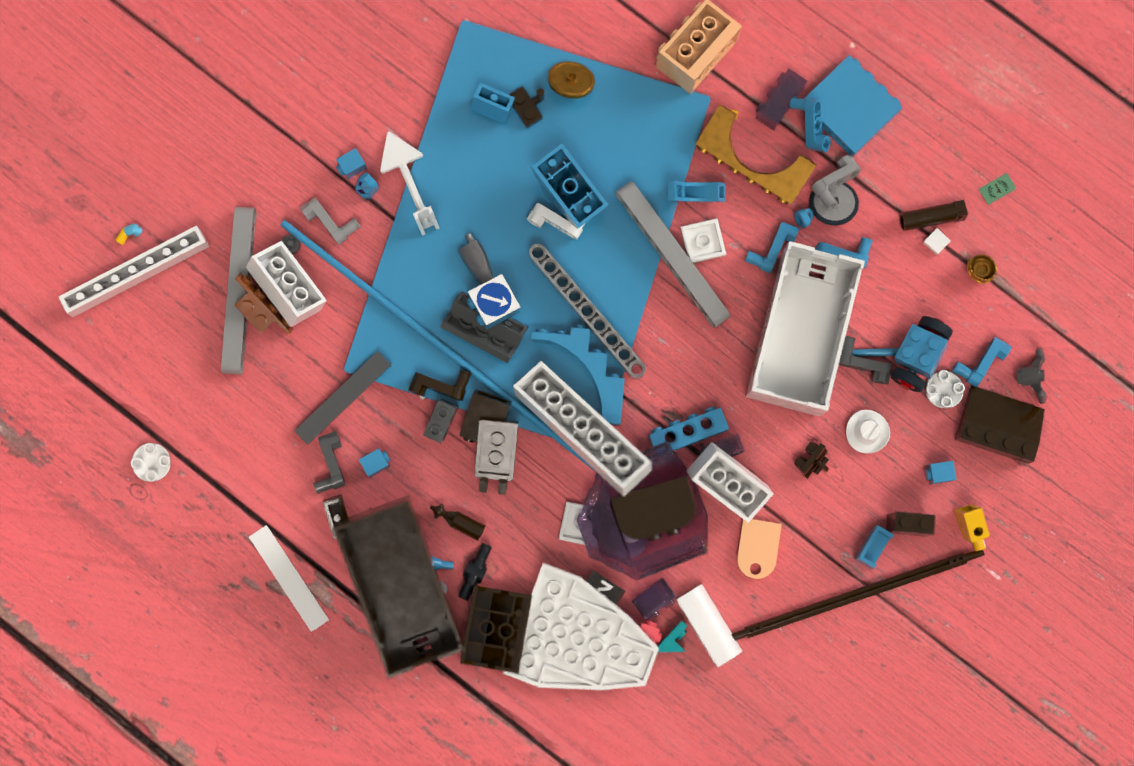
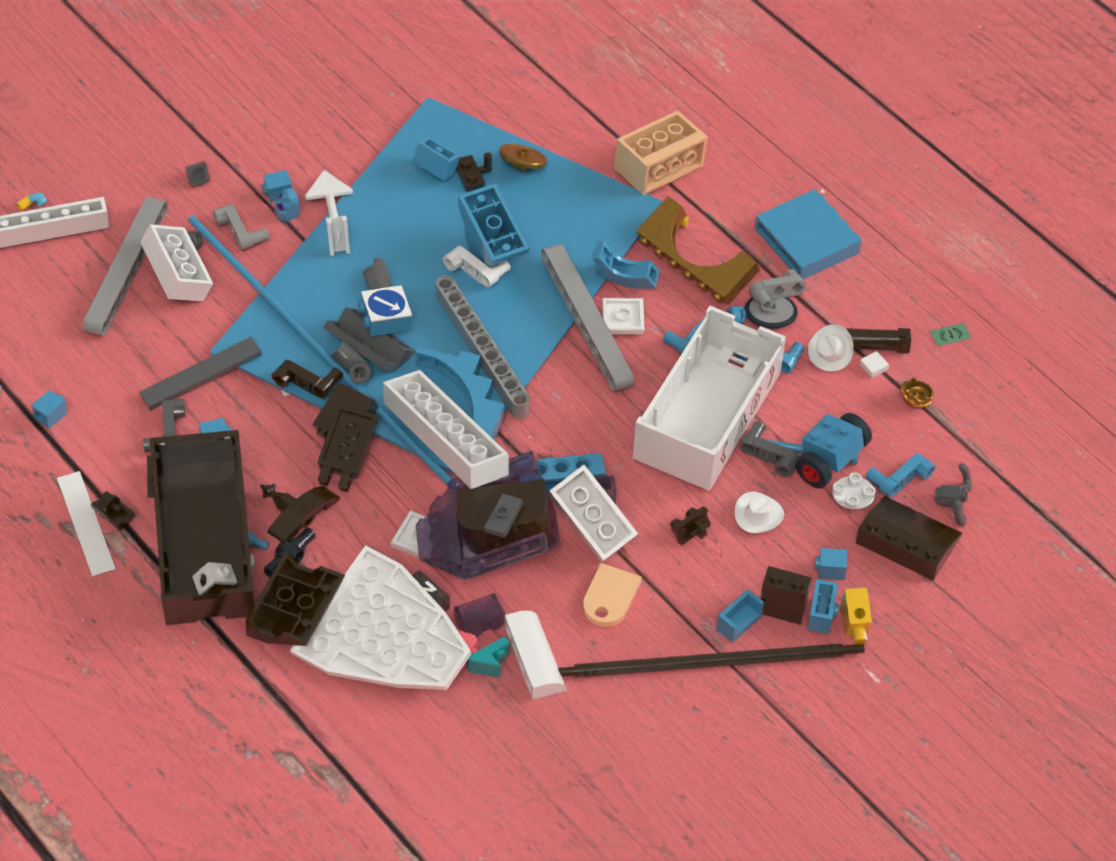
camera: 15 degrees right, 30 degrees down
(220, 469) = (49, 409): none -> dark azure brick
(257, 308) = (138, 278): dark orange bracket -> none
(272, 166) = (197, 173): none -> flat silver tile
(310, 567) = (113, 510): none -> dark brown hips
(421, 621) = (216, 574): none -> white bracket
(441, 420) = (297, 408): dark grey brick -> none
(476, 531) = (301, 510): none -> dark brown slope
(478, 360) = (352, 363): none -> dark grey cylinder
(660, 523) = (503, 515): none -> dark grey plate
(778, 101) = (735, 215): clear purple brick -> none
(813, 123) = (763, 248): dark azure beam -> none
(897, 237) = (831, 348): none -> white hat
(944, 522) = (823, 606): none -> dark azure brick

